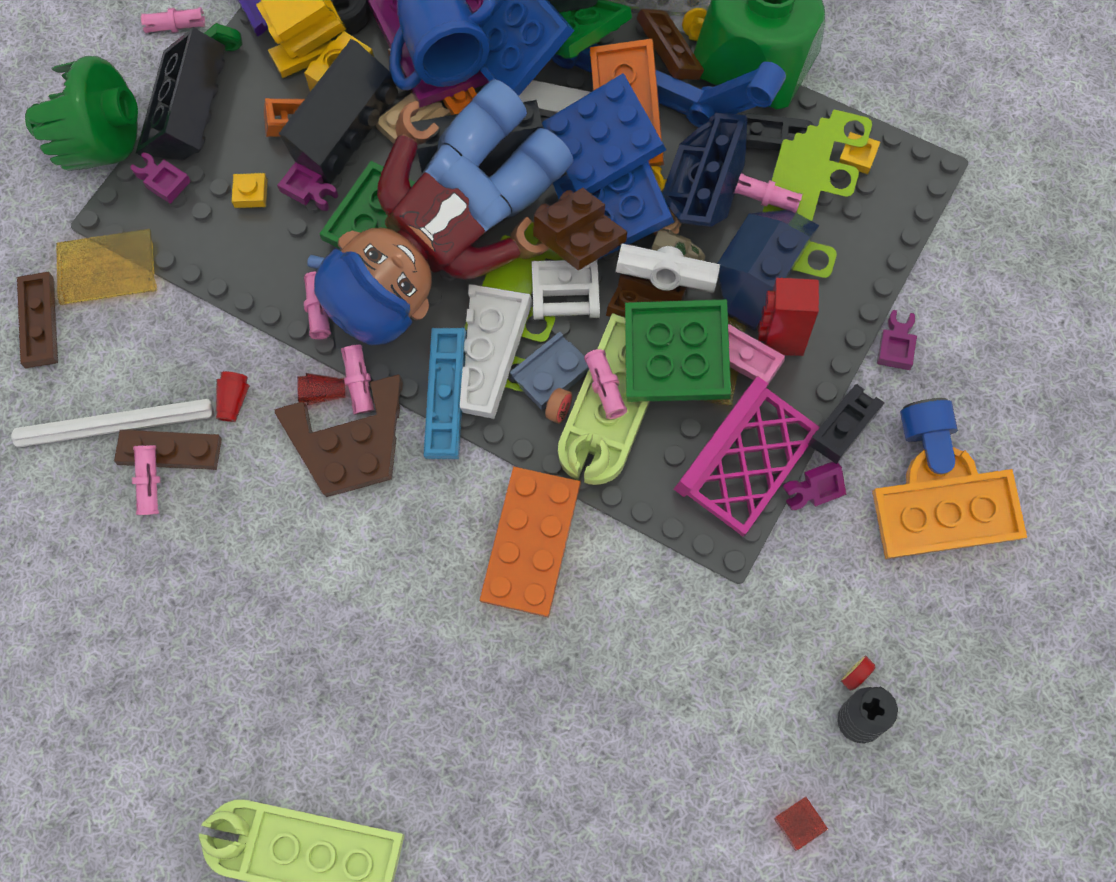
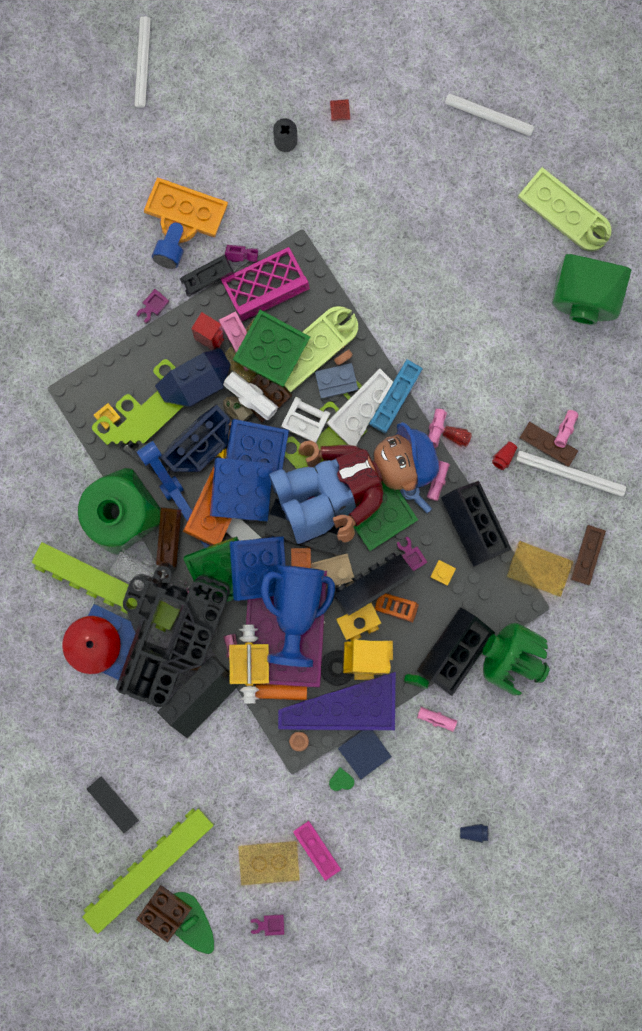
camera: 160 degrees left, 15 degrees up
(163, 179) = (486, 602): magenta plate -> none
(188, 709) = (590, 289): none -> green piece
(227, 272) = (476, 523): none -> black slope
(352, 452) = (458, 392): reddish brown wing -> none
(530, 542) = (392, 299): orange plate -> none
(577, 228) = (285, 438): reddish brown plate -> none
(605, 384) = (315, 351): bright pink pin -> none
(693, 22) = (142, 547): yellow plate -> none
(768, 193) = (171, 414): bright pink pin -> none
(858, 673) = (275, 158): red tile -> none

